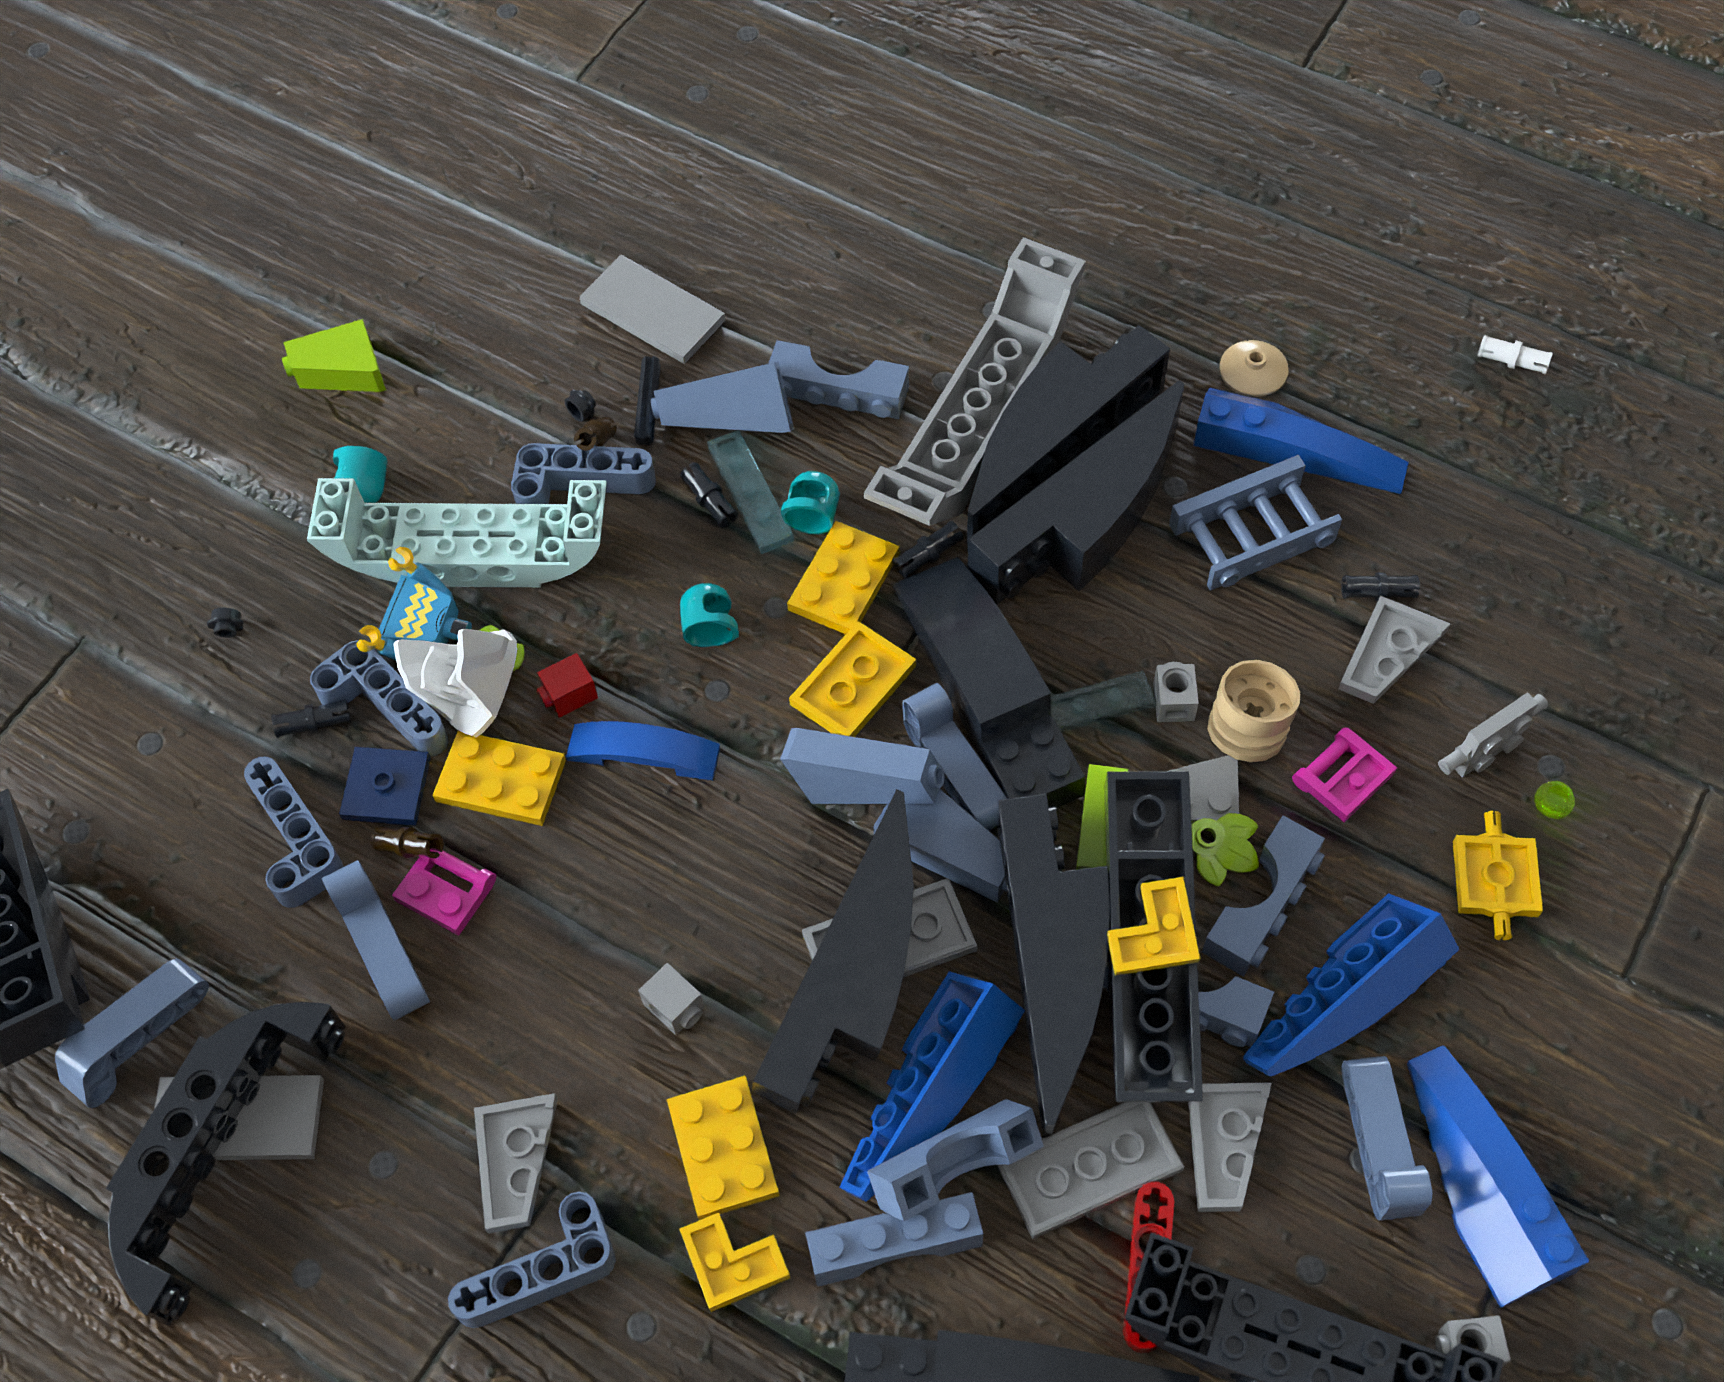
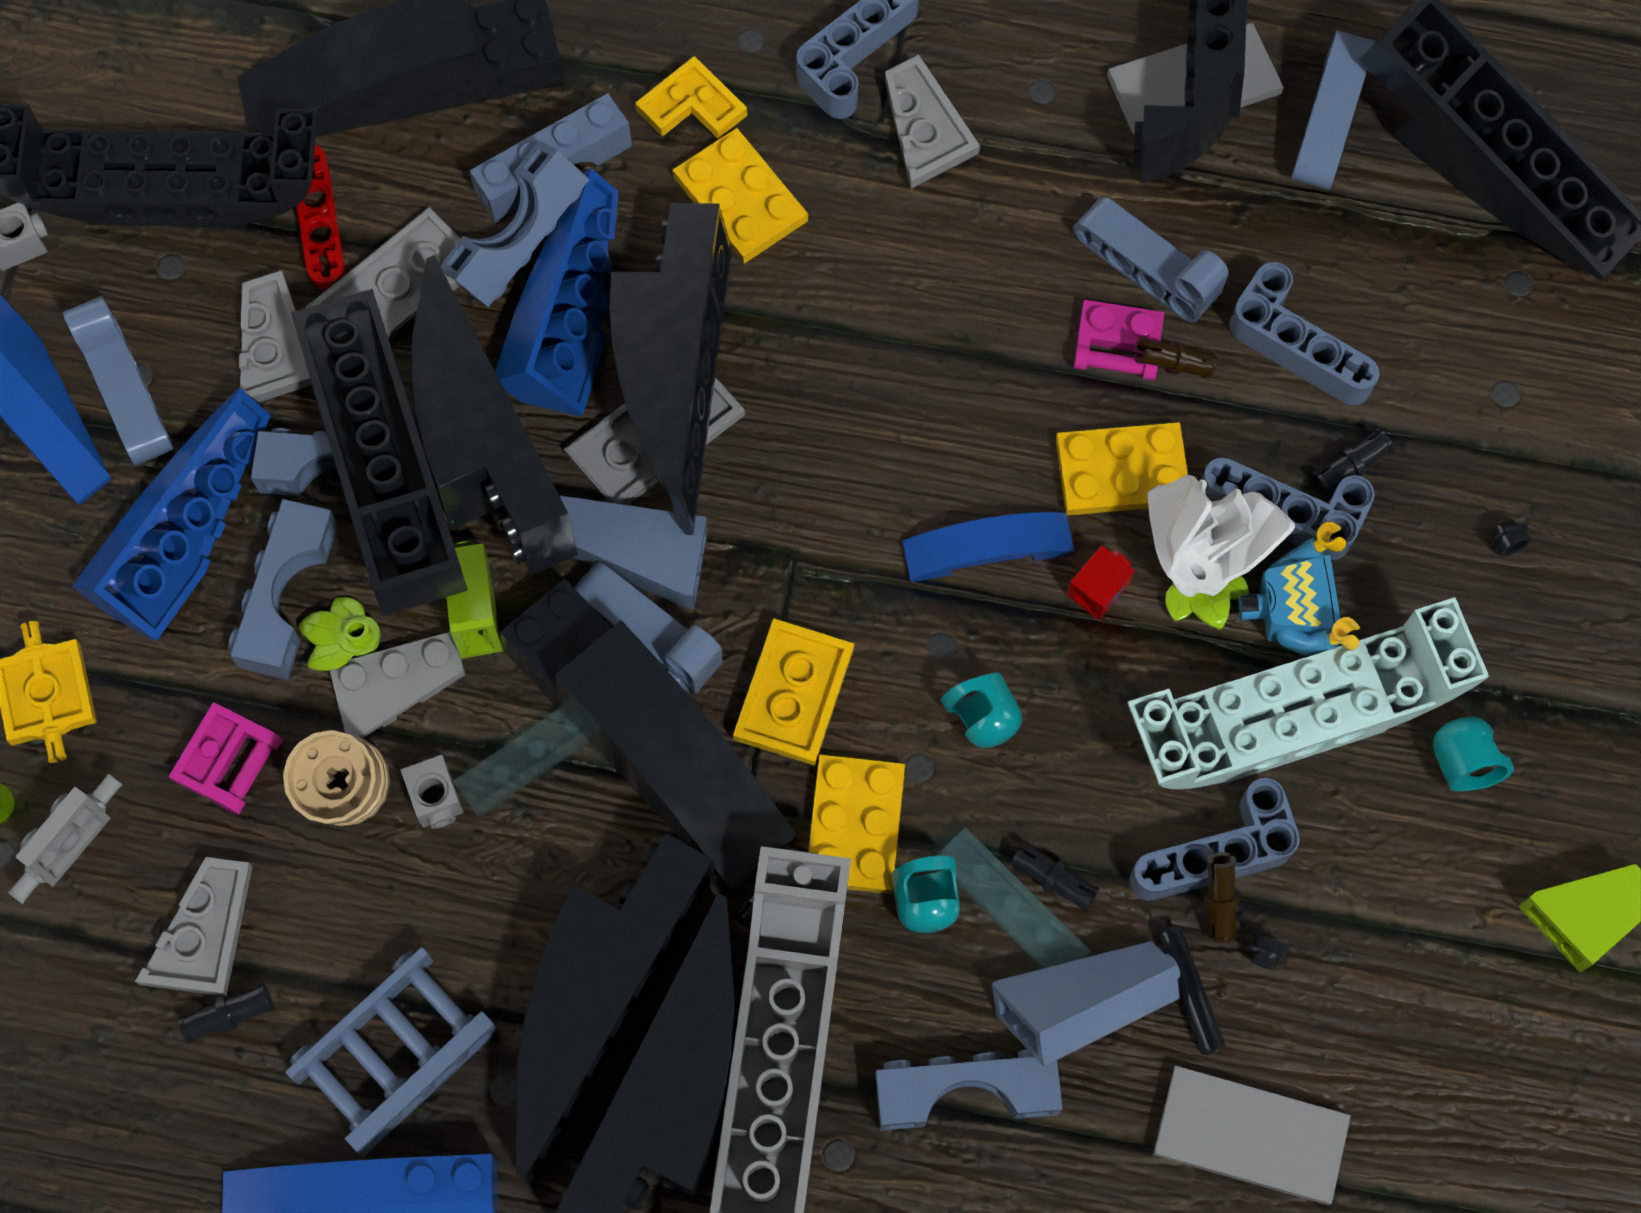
camera: 155 degrees right, 10 degrees up
(385, 786) = (1236, 420): dark blue plate -> none
(672, 999) = (841, 299): light grey brick -> none
(860, 770) = (736, 558): sand blue slope -> none
(1165, 940) = (357, 420): yellow plate -> none

